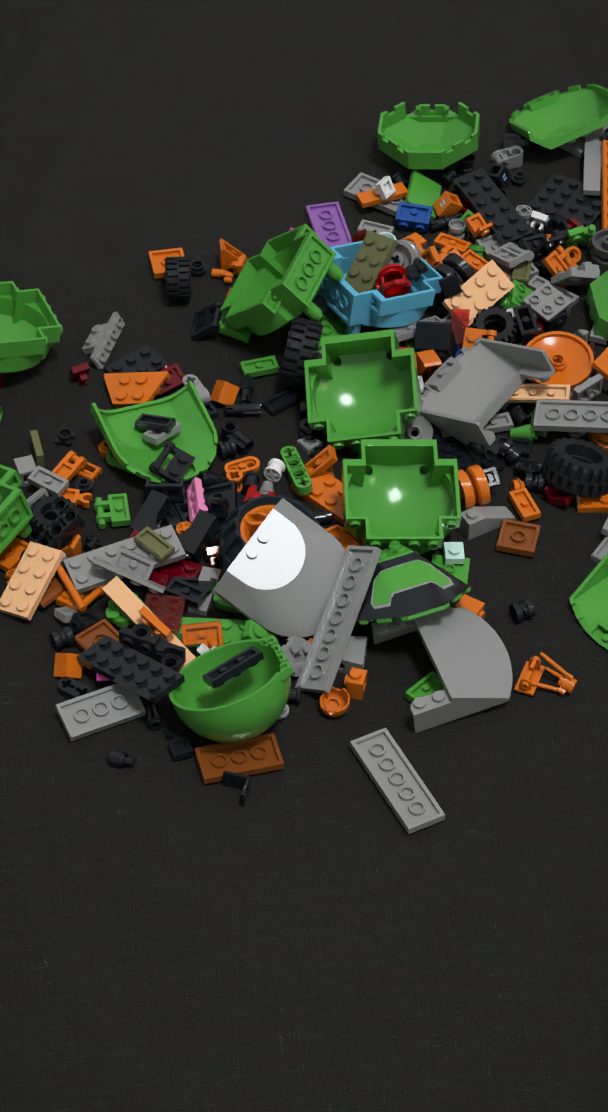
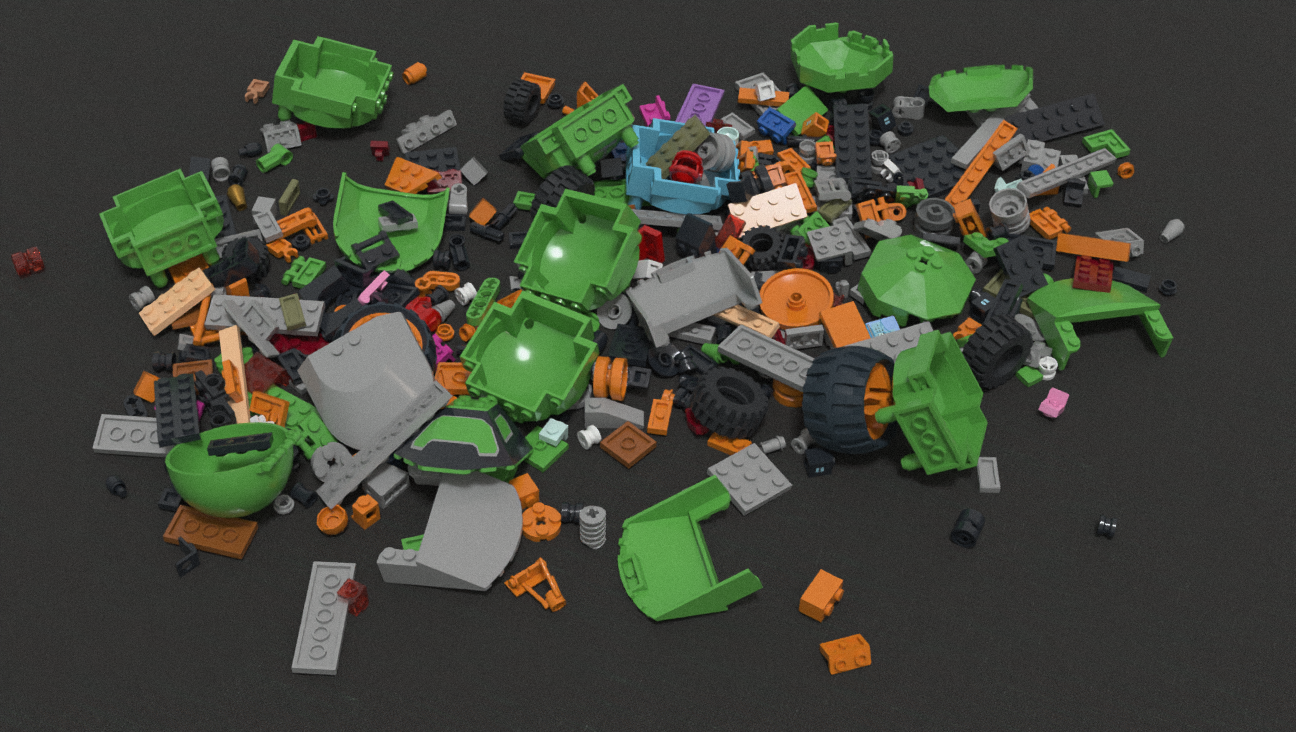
camera: 30 degrees right, 0 degrees up
(47, 287) = (414, 73): none -> orange brick
(183, 358) = (473, 171): none -> light grey panel
(310, 503) = (466, 332): none -> orange plate
(409, 748) = (355, 594): none -> clear red bracket
(413, 272) = (714, 165): black wheel -> none
(427, 362) = (674, 251): orange slope -> none
(482, 545) = (589, 437): none -> white wheel
(509, 624) = (544, 513): none -> orange plate
(517, 195) = (890, 142): none -> light grey wheel
(552, 612) = (593, 526): none -> light grey piece

